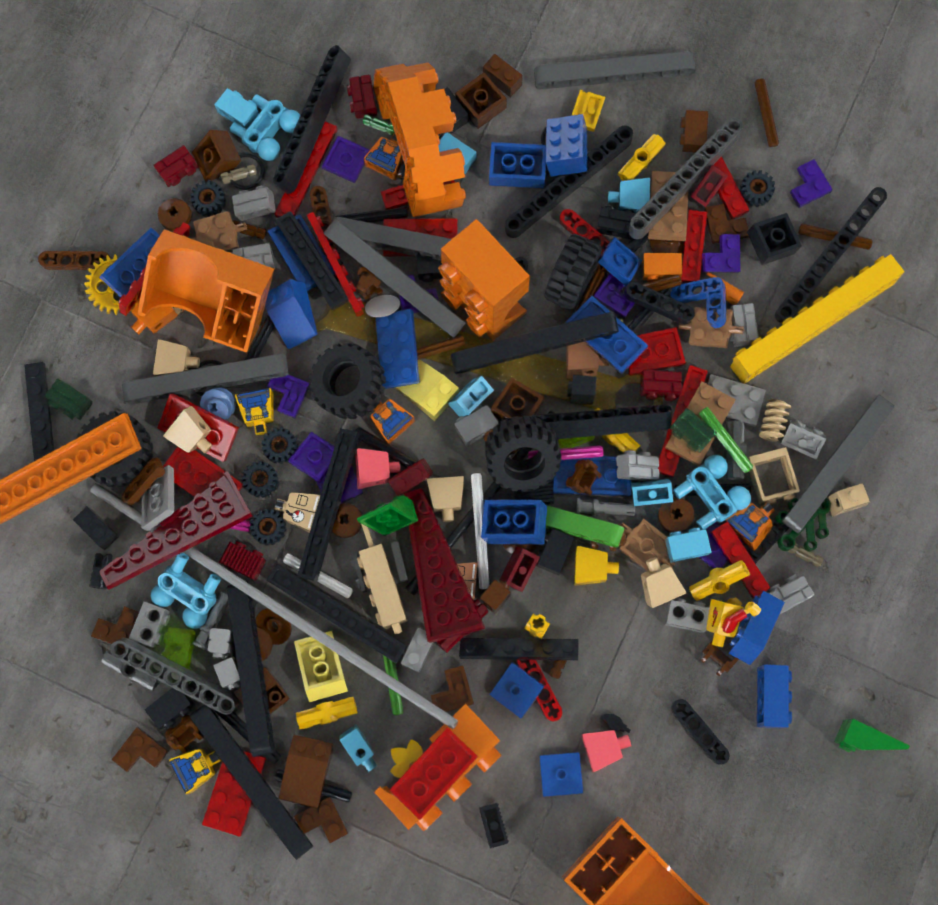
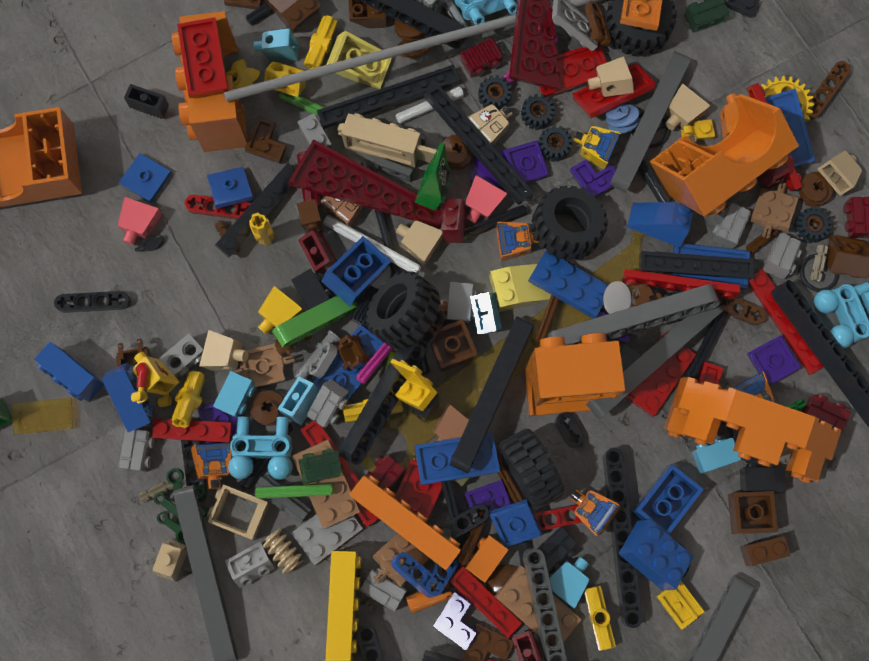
camera: 120 degrees right, 0 degrees up
(146, 201) = (841, 172): none -> tan torso
(183, 336) = (700, 130): none -> yellow plate
(384, 716) = (278, 70): none -> yellow brick
(566, 209) = (595, 510): none -> torso
(580, 397) = (417, 389): none -> yellow bracket
(603, 496) = (323, 359): none -> light grey beam
(684, 338) = (406, 522): none -> orange brick
(822, 695) = (42, 416): none -> clear yellow piece

